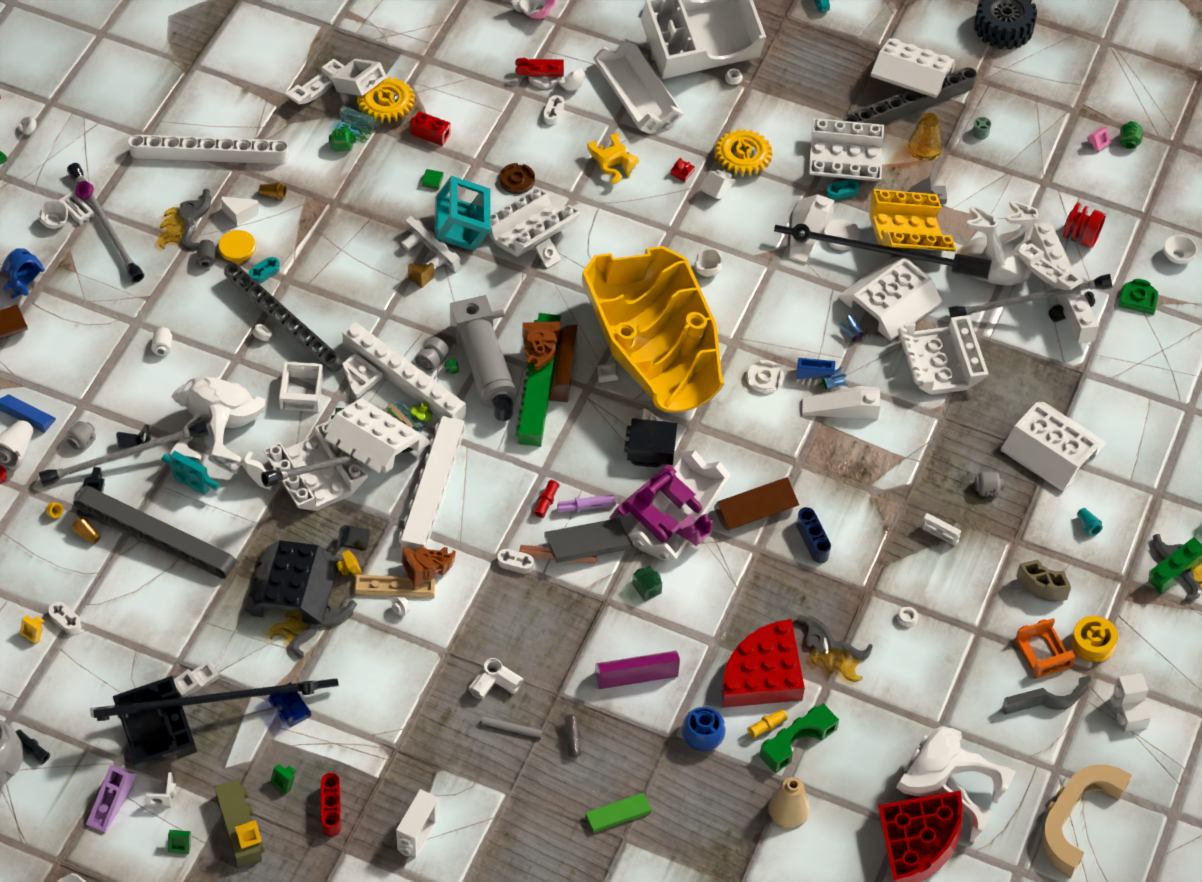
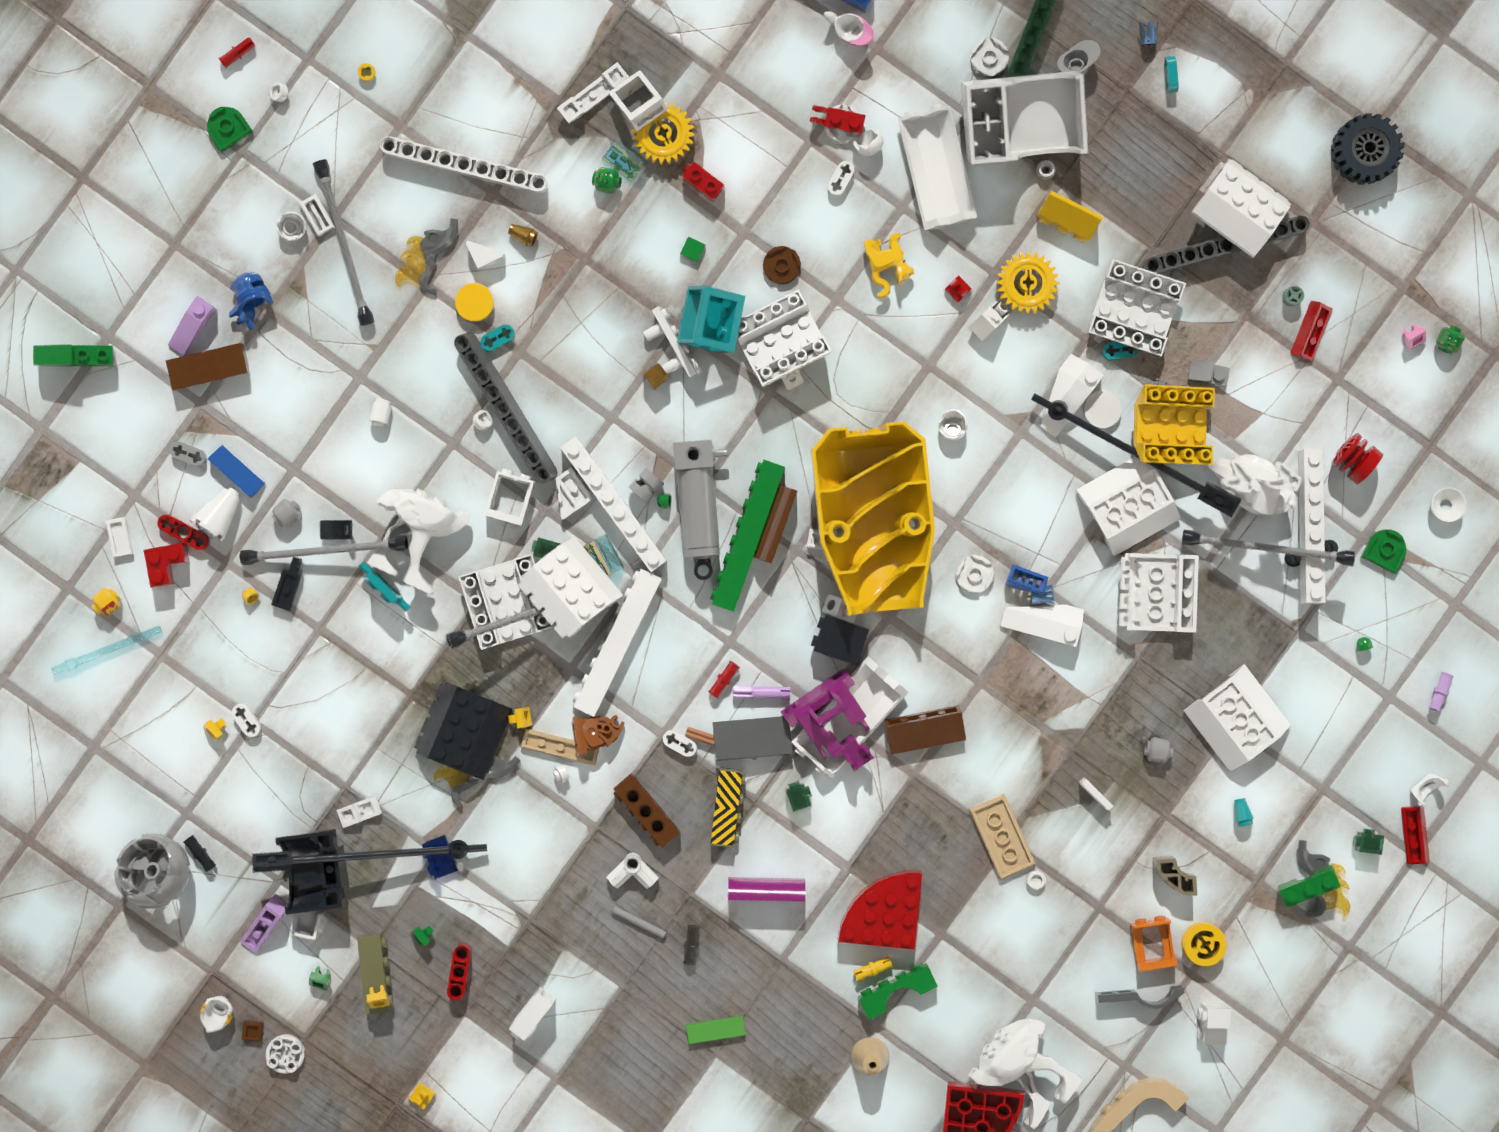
camera: 15 degrees right, 35 degrees up
(84, 190) = (326, 199): magenta tile -> none
(86, 530) = (277, 626): pearl gold cone -> none
(104, 98) = (366, 66): none -> yellow bush
(155, 532) = (341, 646): dark grey beam -> none
(206, 253) = (440, 307): dark grey brick -> none
(254, 469) = (450, 593): white hat -> none
(353, 537) = (531, 686): black bracket -> none
(421, 412) = (623, 551): lime plant -> none
(492, 612) = (669, 829): none -> reddish brown brick
(541, 341) = (757, 503): dark orange piece -> none
(577, 605) = (726, 807): none -> brick
(703, 737) = (817, 979): blue wheel -> none
(765, 98) = (1069, 217): none -> yellow slope
(807, 530) = (976, 783): dark blue beam -> none
(831, 652) = (953, 903): piece -> none
(856, 333) = (1079, 537): flat silver piece -> none
(861, 585) = (1002, 836): none -> tan tile
(926, 138) = (1225, 305): clear yellow cone -> none
(1007, 151) = (1311, 330): none -> red slope
(1035, 260) = (1297, 525): white slope -> none
(1149, 368) = (1364, 644): none -> green hinge

